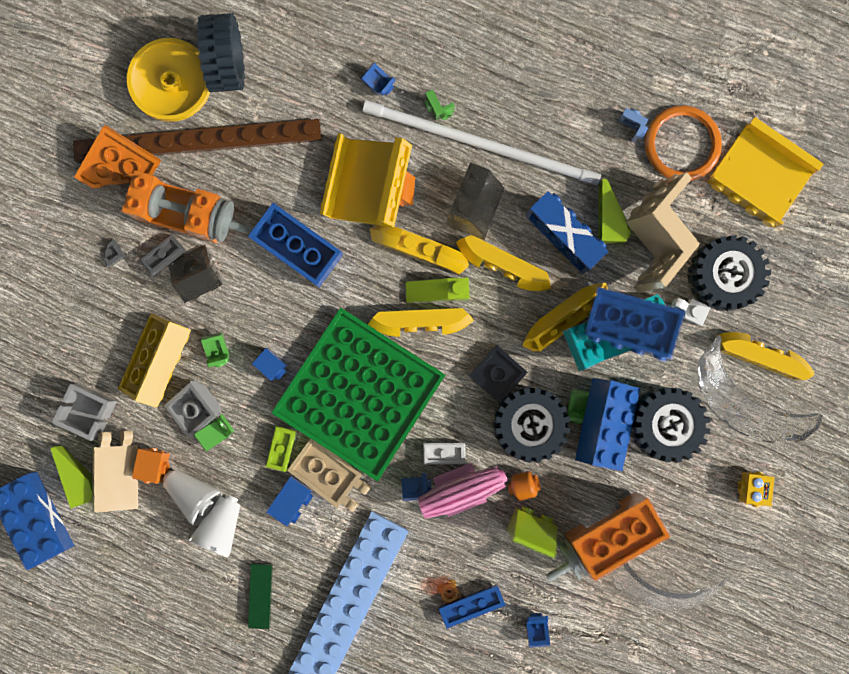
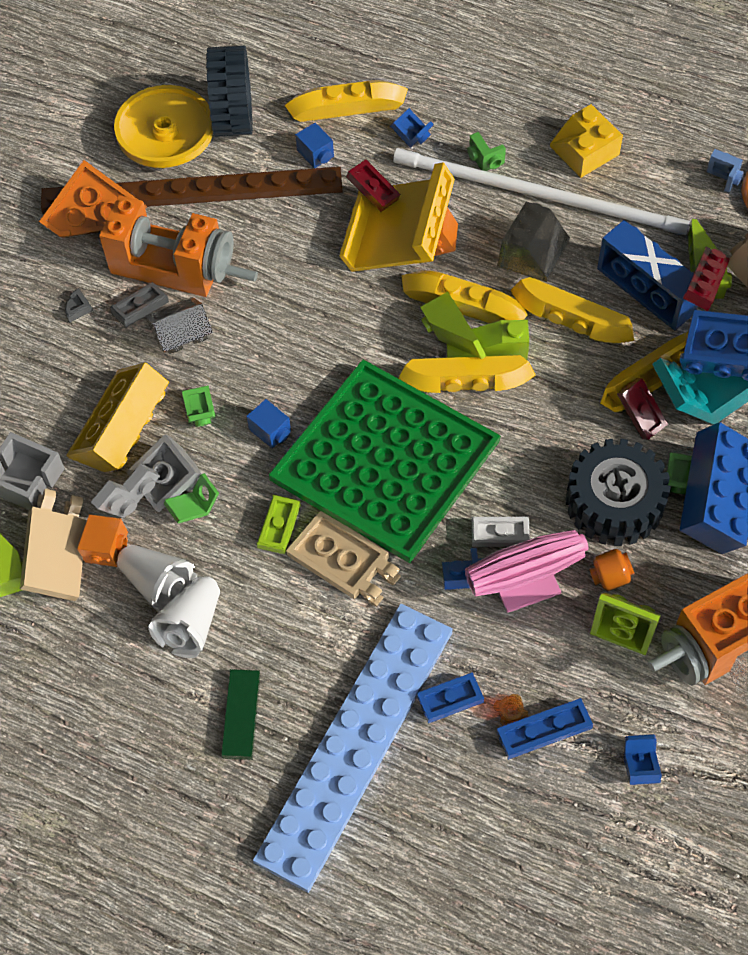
camera: 10 degrees right, 25 degrees down
(164, 434) = (123, 499): none -> light grey plate
(290, 500) = (289, 586): blue brick -> none
(296, 245) = (309, 290): blue brick -> none
(297, 98) = (314, 145): none -> blue brick
(322, 48) = (346, 100): none -> yellow brick
(345, 147) = (373, 185): none -> dark red plate
(406, 275) = (450, 325): none -> lime slope
(406, 584) = (450, 697): none -> blue plate
(498, 374) = (568, 435): black plate -> none
(521, 94) = (587, 141): none -> yellow slope
(553, 353) = (642, 409): none -> dark red plate
(610, 251) = (707, 278): none -> dark red plate

